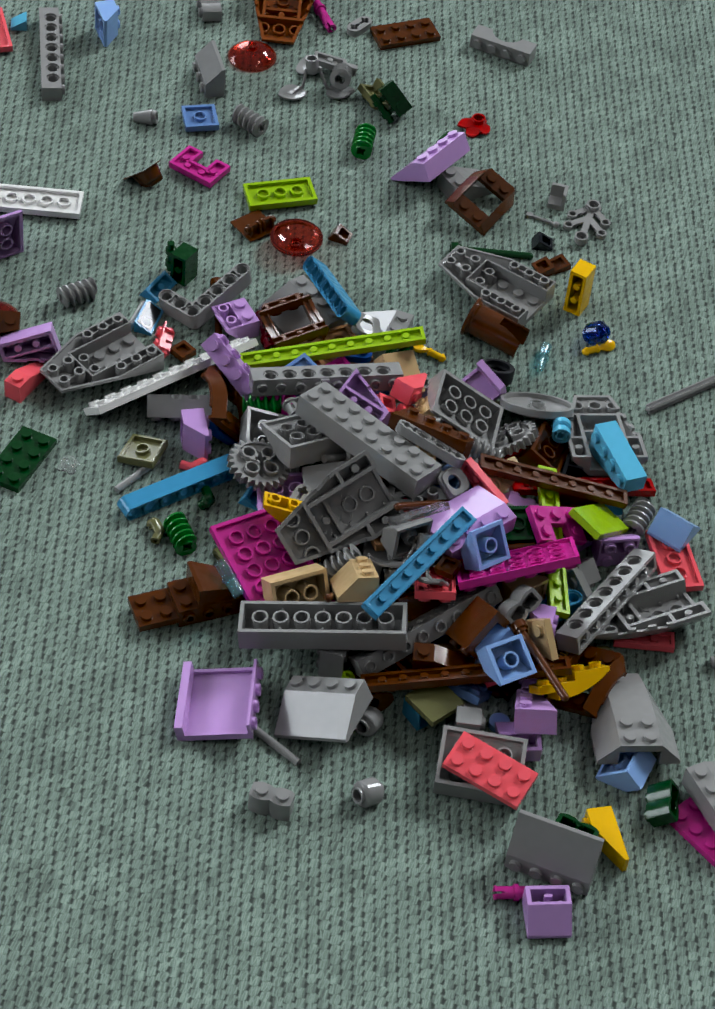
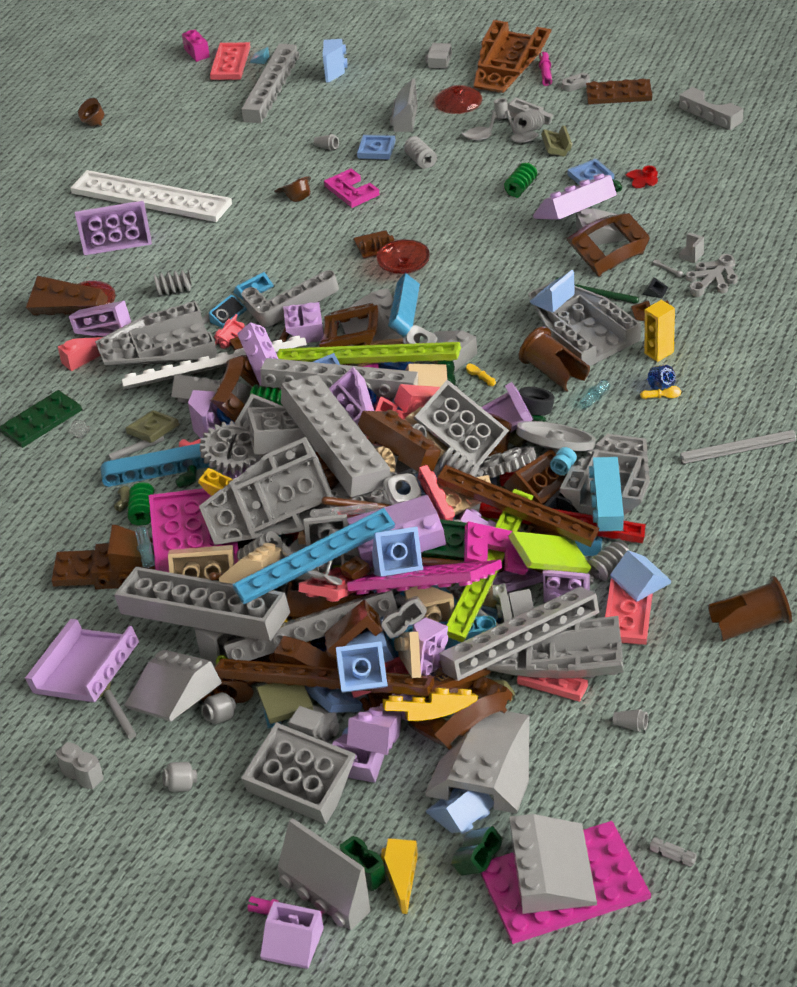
camera: 30 degrees right, 5 degrees down
(181, 262) = (281, 266): dark green brick -> none
(280, 193) = (414, 218): lime plate -> none
(340, 235) = (453, 260): reddish brown slope -> none
(394, 98) = (567, 143): dark green brick -> none
(425, 128) = (588, 170): none -> medium blue plate
(430, 443) = (390, 446): light grey beam -> none
(468, 260) = (555, 293): none -> light blue slope
(490, 770) = (300, 777): coral plate -> none
(520, 627) = (392, 639): reddish brown piece -> none

